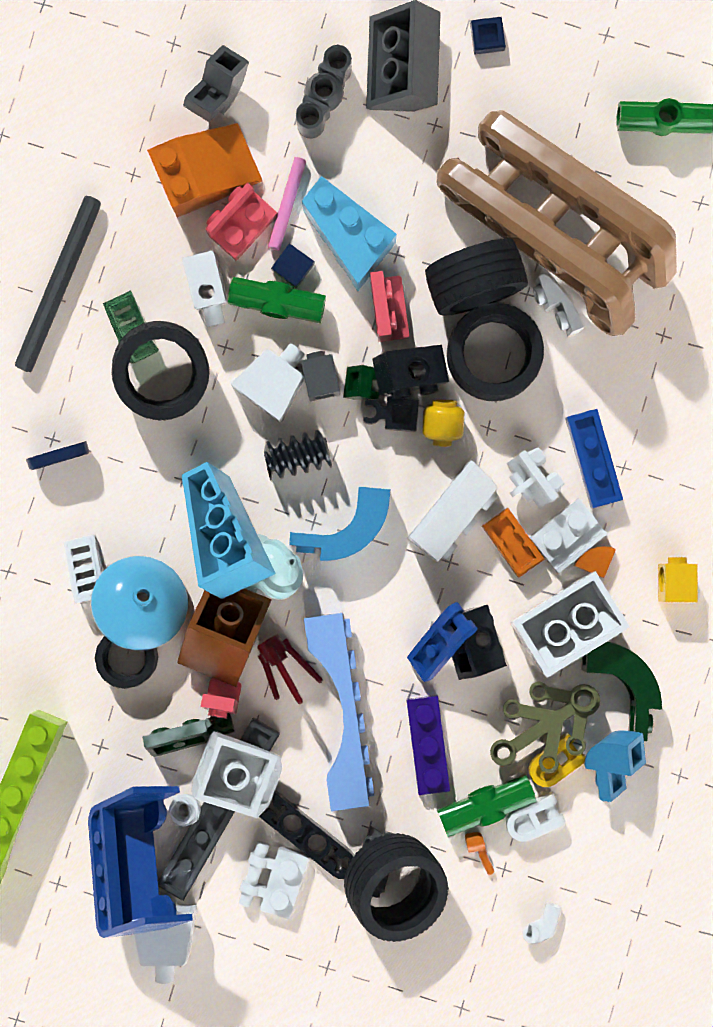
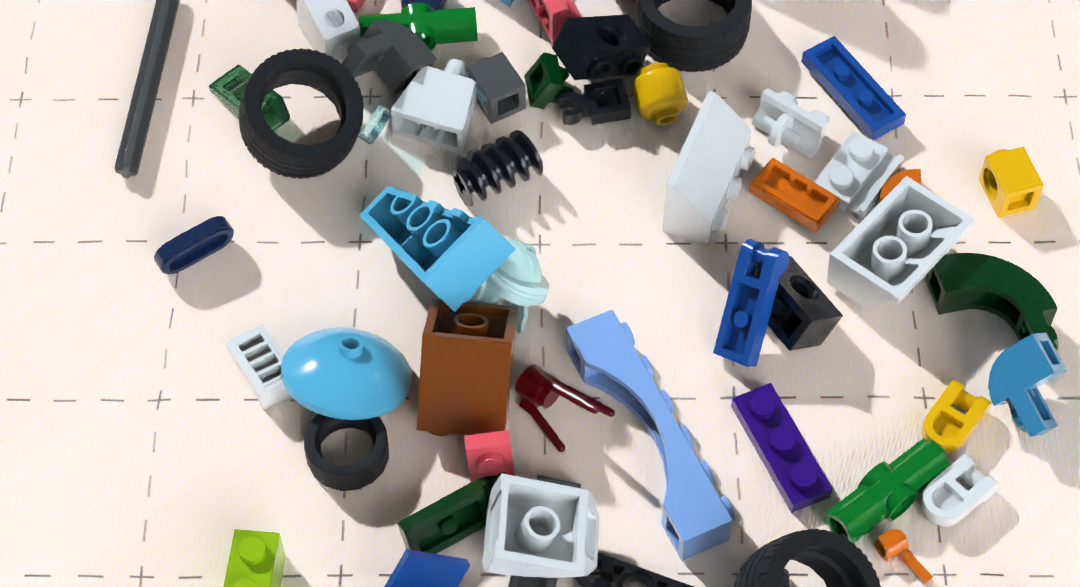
camera: 15 degrees left, 30 degrees down
(218, 385) = (375, 124): none -> clear light blue tile
(247, 327) = (390, 51): none -> dark grey brick
(364, 527) = (596, 235): dark azure arch -> none
(550, 722) = (954, 333): olive plant -> none

